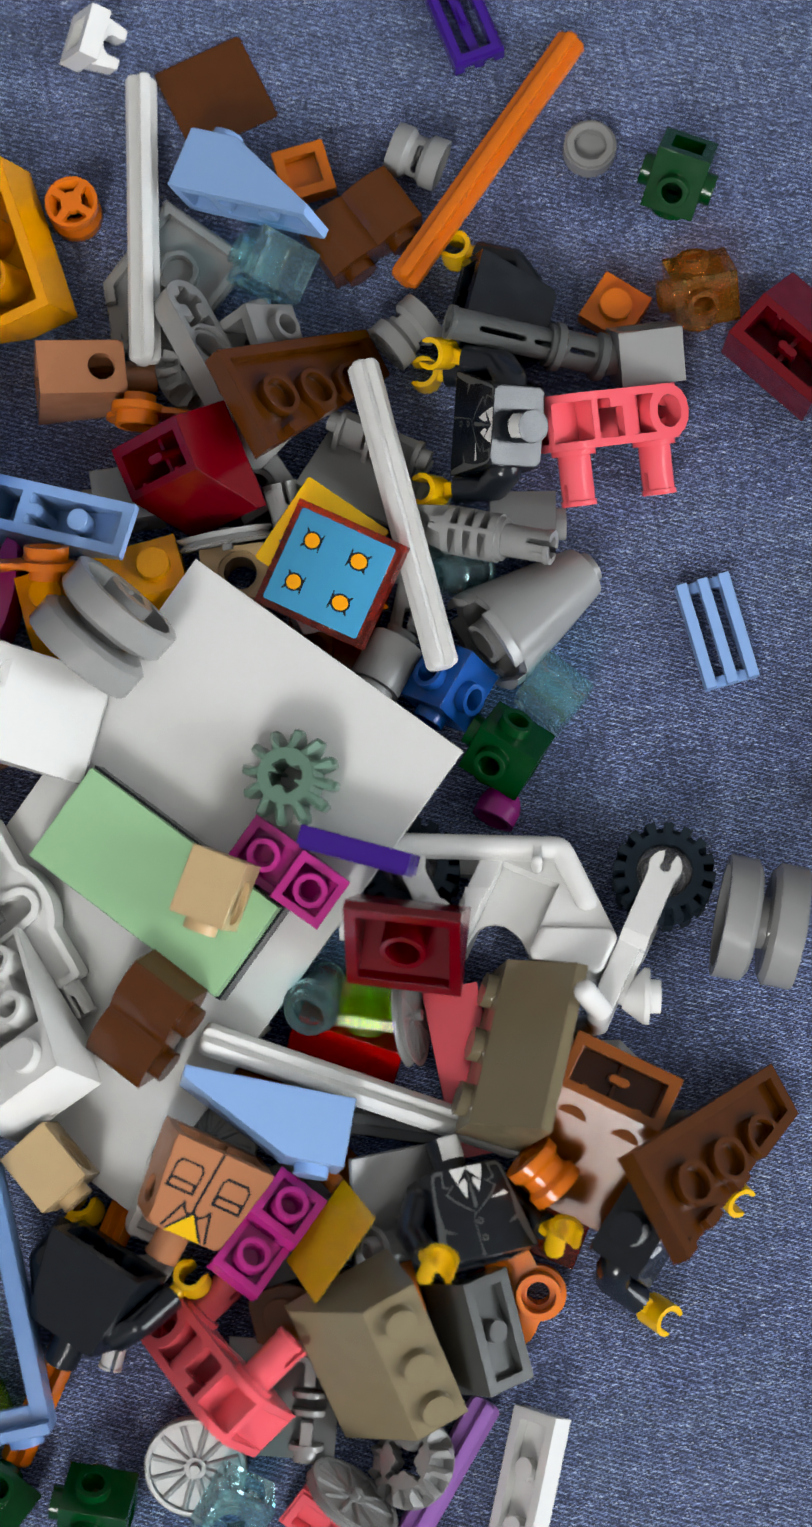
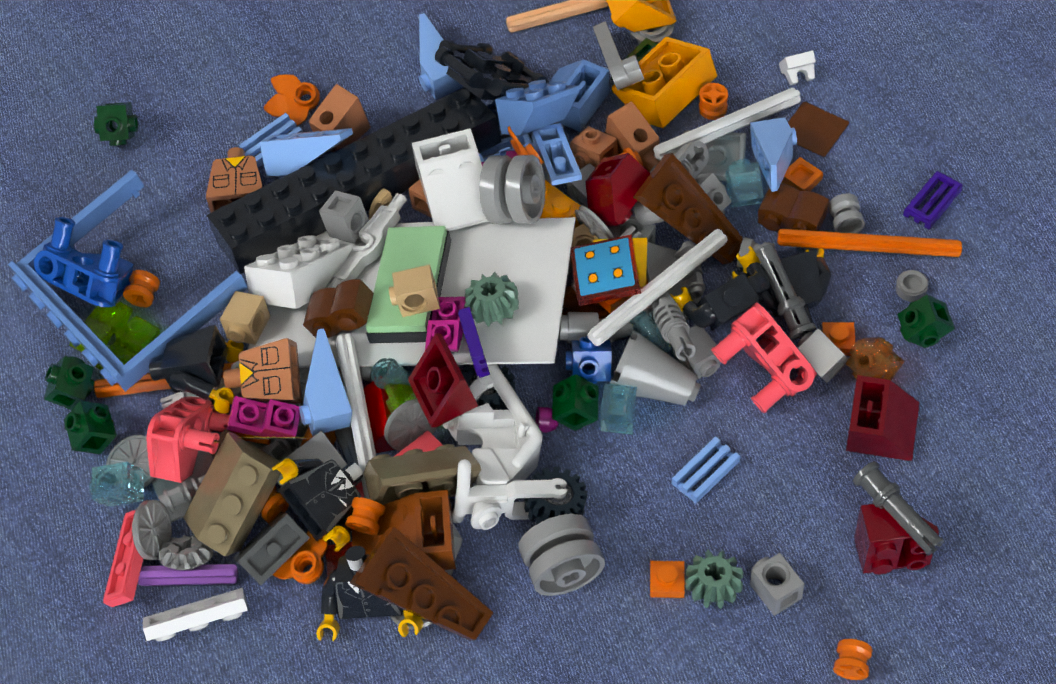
camera: 60 degrees right, 25 degrees down
(60, 448) = (592, 147): none -> nougat brick

